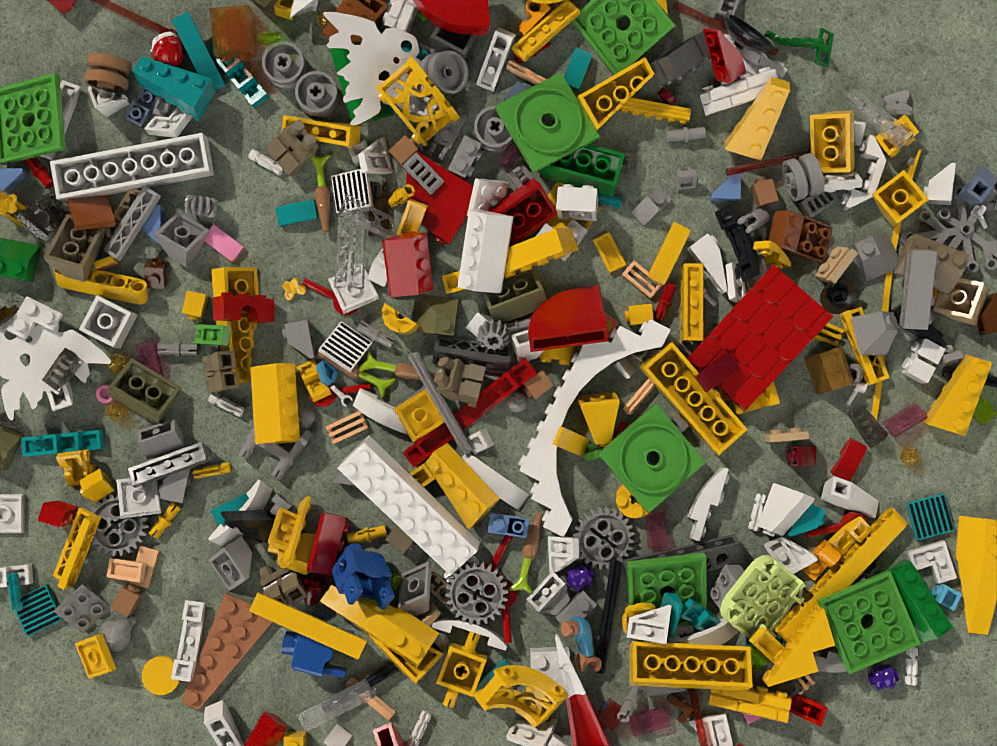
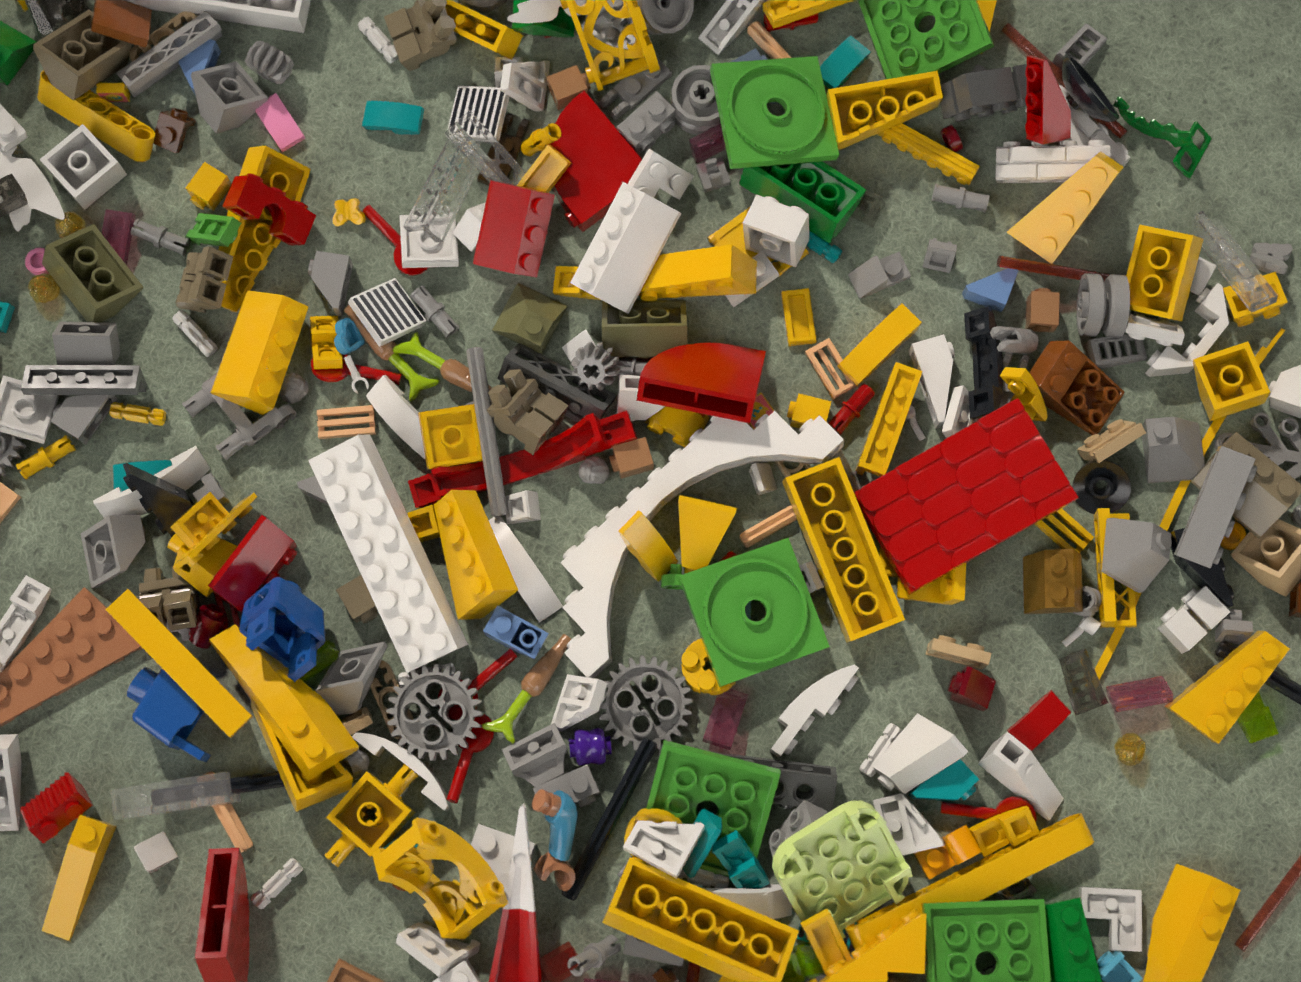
camera: 25 degrees right, 10 degrees down
(322, 192) = (437, 103): medium nougat piece -> none
(367, 534) = (314, 578): yellow pin -> none
(398, 325) = (473, 309): yellow cylinder -> none
(415, 157) = (574, 98): light grey slope -> none
(529, 209) = (707, 218): red slope -> none
(717, 372) = (888, 520): dark red slope -> none
(930, 516) = (1131, 848): tile -> none

